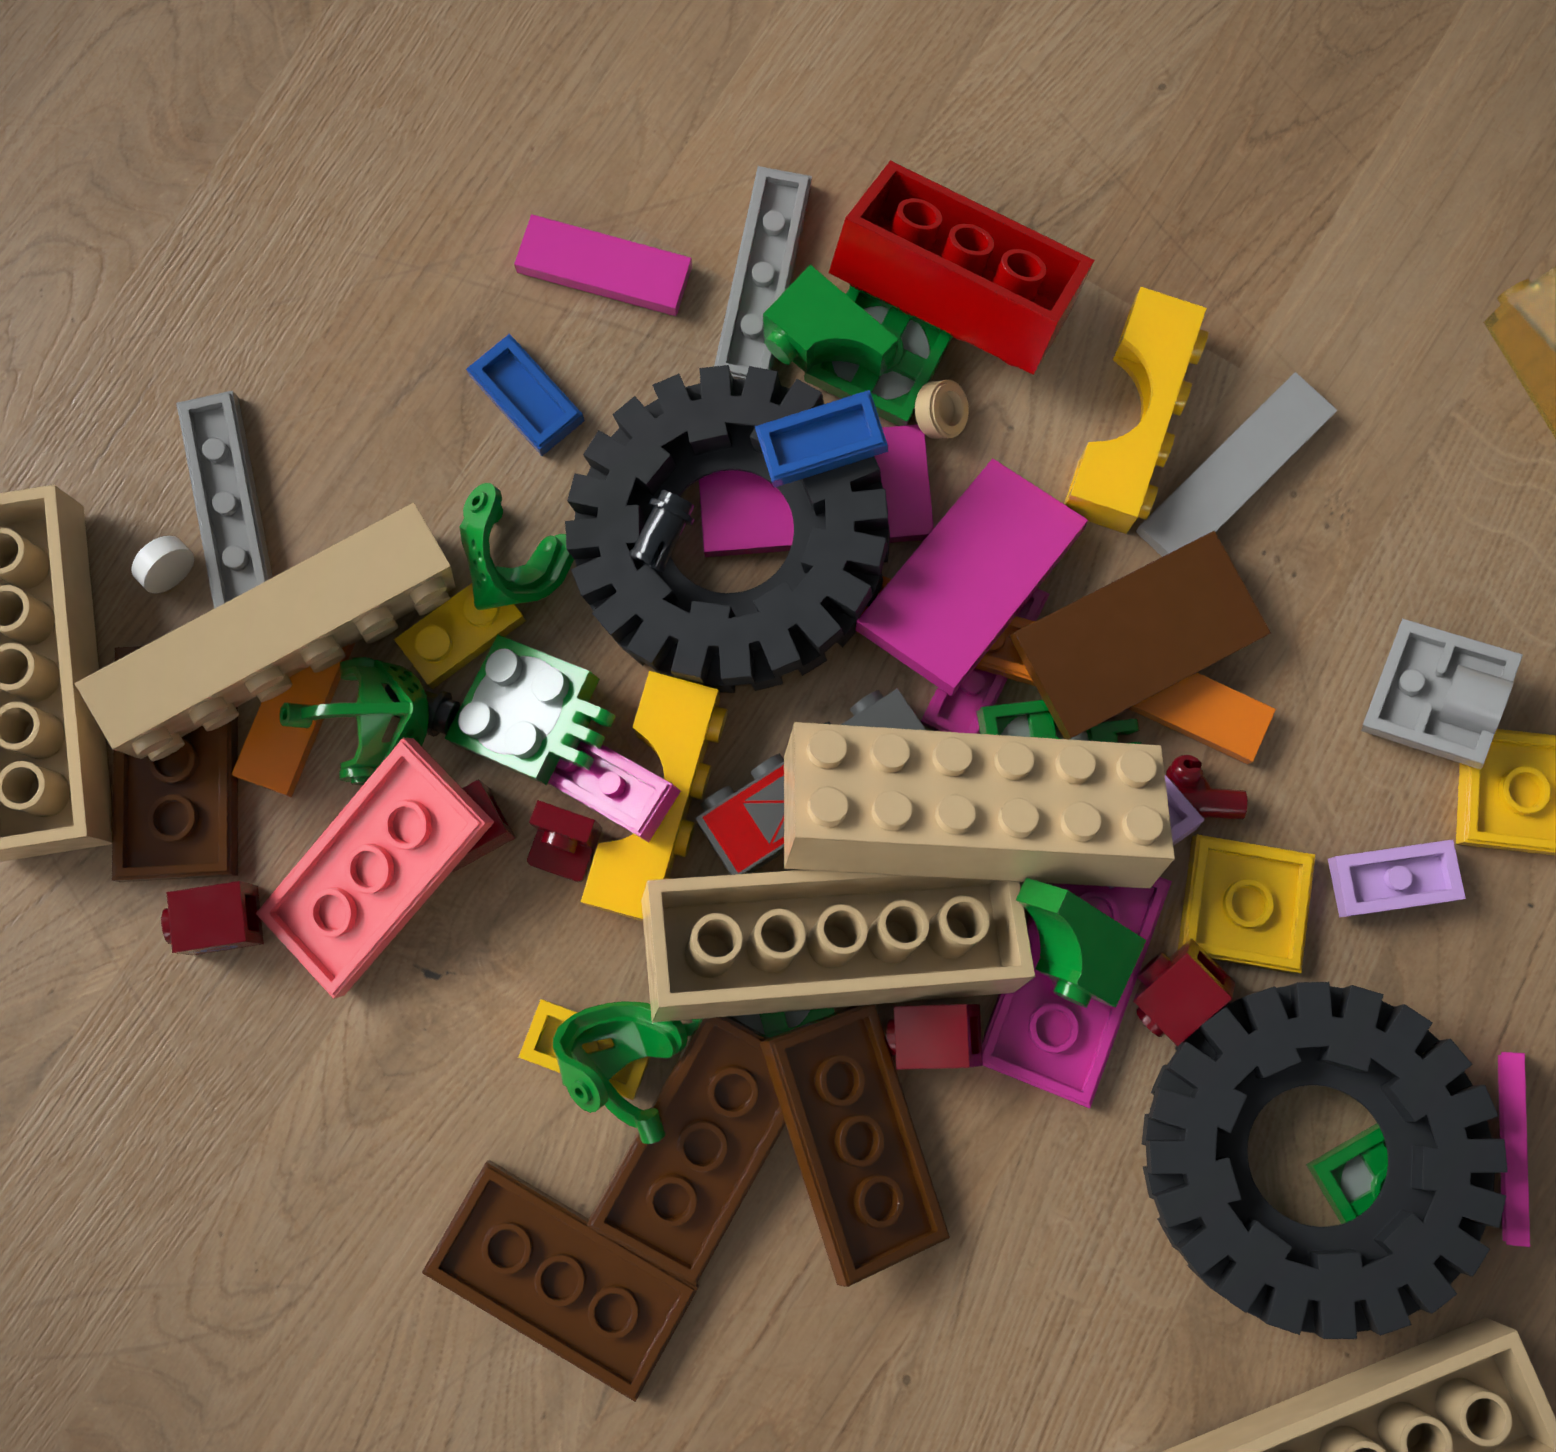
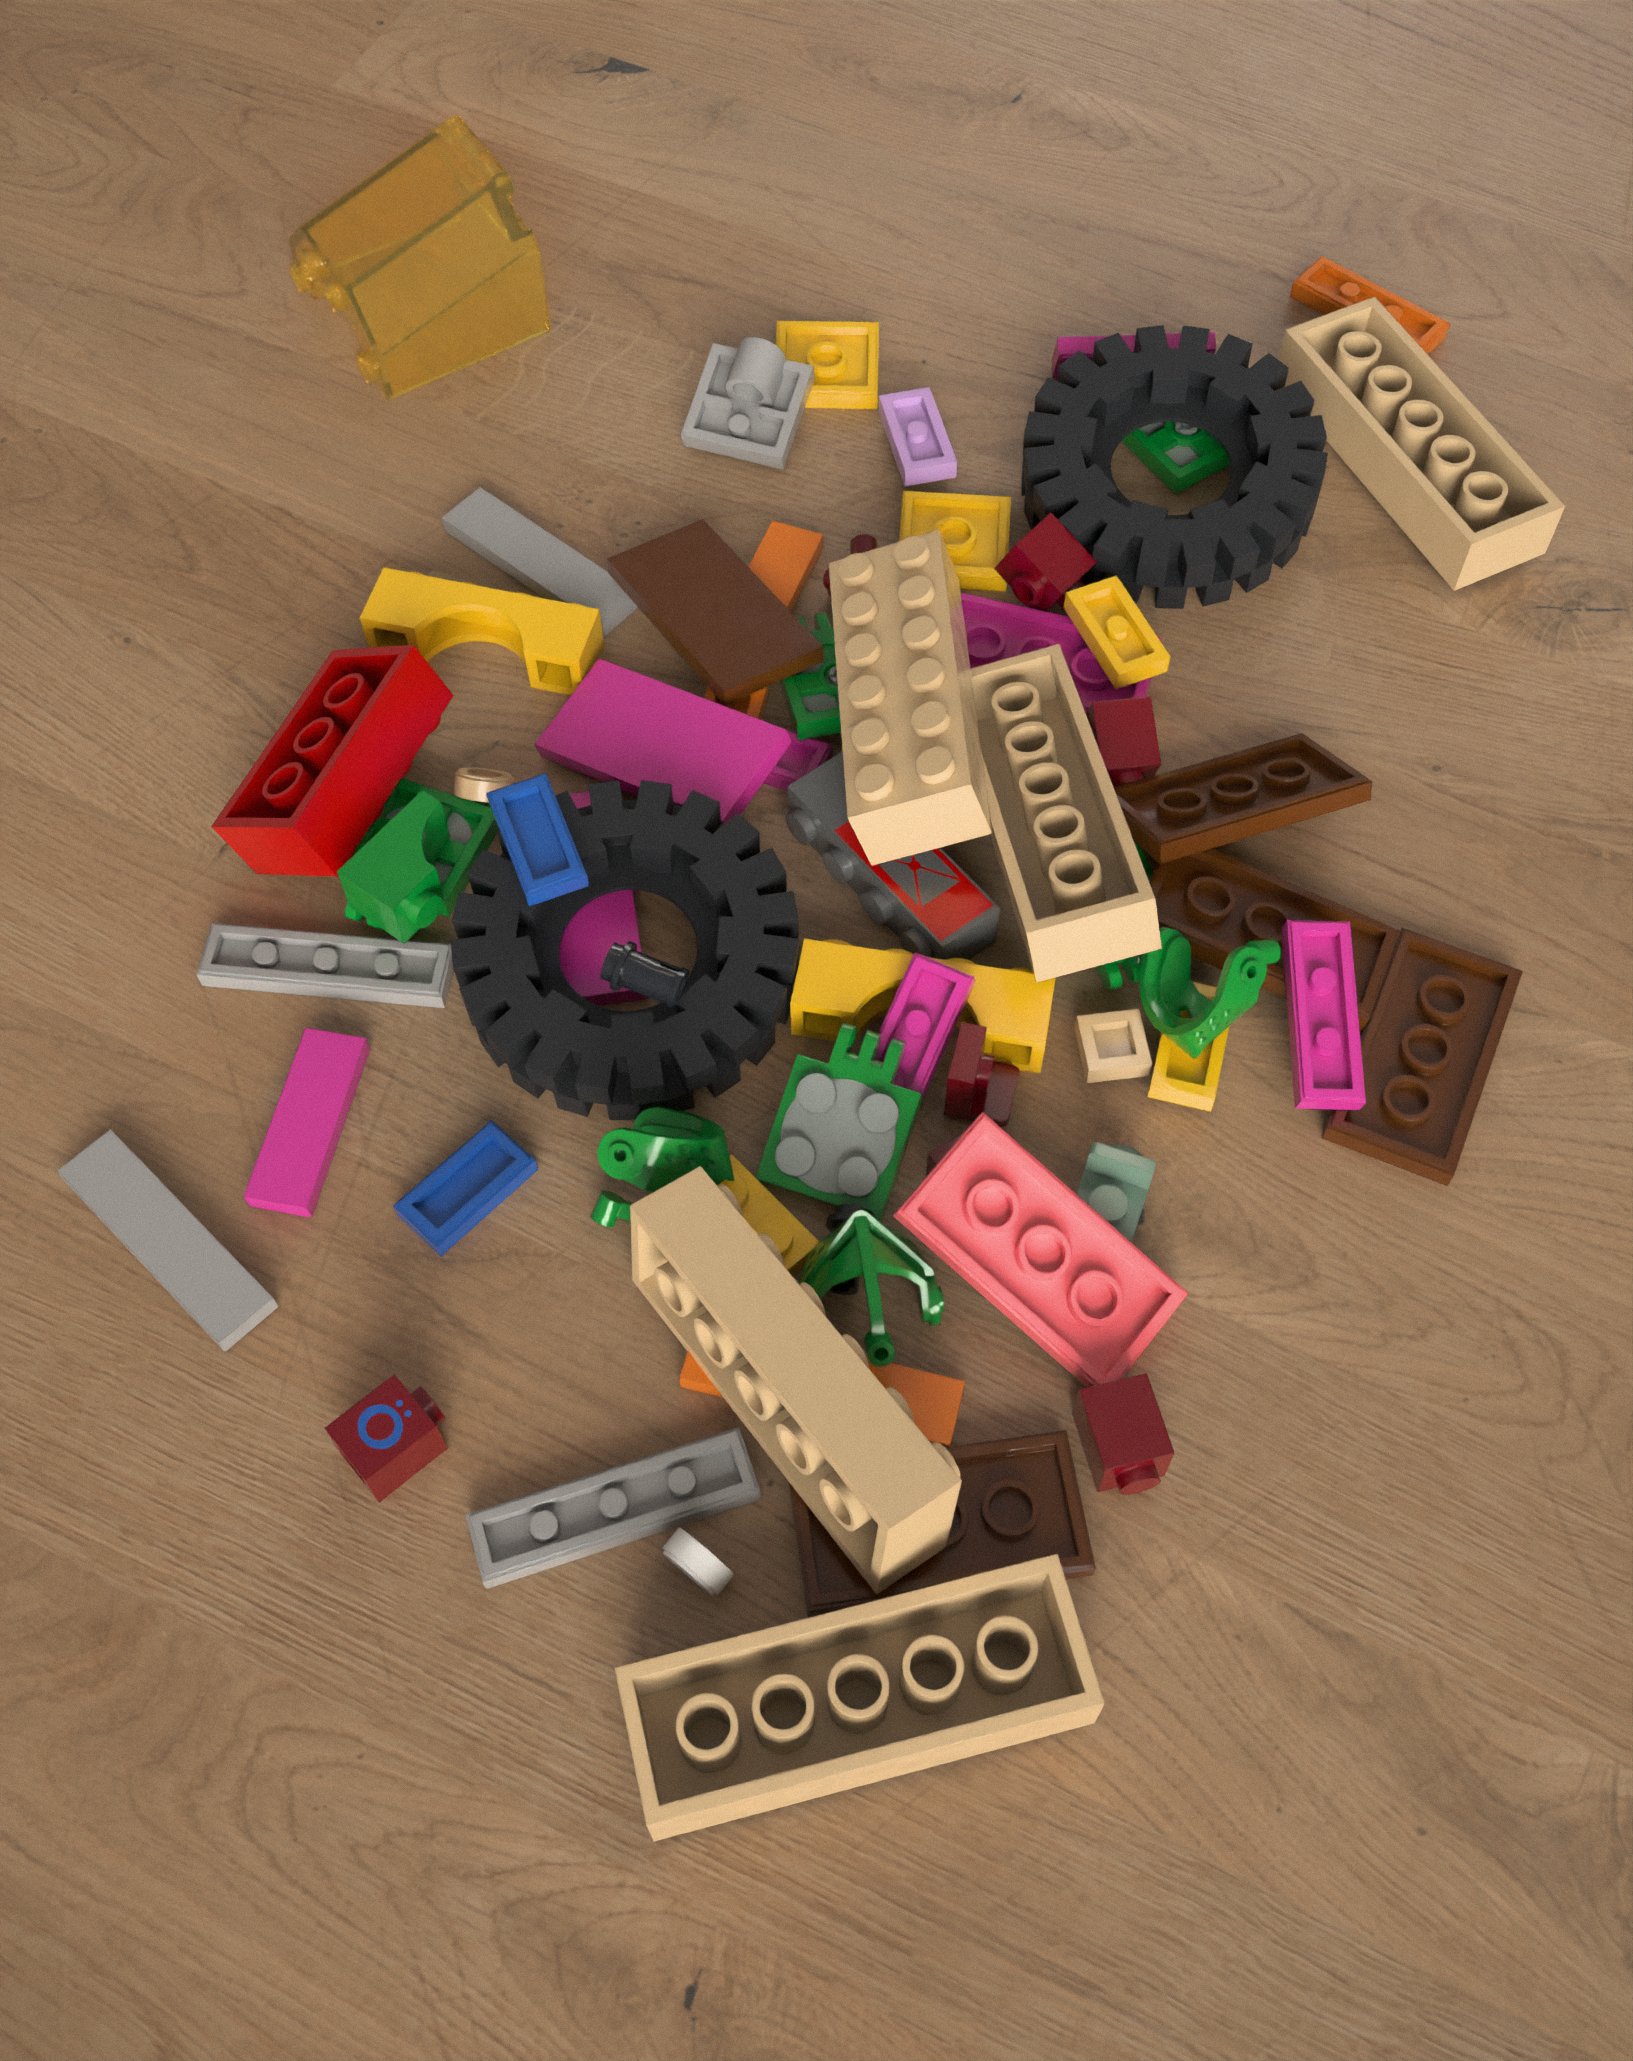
camera: 95 degrees left, 20 degrees down
(298, 329) = (389, 1436): none -> dark red brick
(439, 946) = (1117, 1184): none -> sand green bracket
(506, 158) = (168, 1240): none -> light grey tile
(587, 1177) = (1323, 1015): none -> dark pink tile
(593, 972) = (1113, 1045): none -> tan plate
(1080, 945) = (1020, 620): green arch -> none
(1082, 1053) = (1116, 632): none -> yellow plate

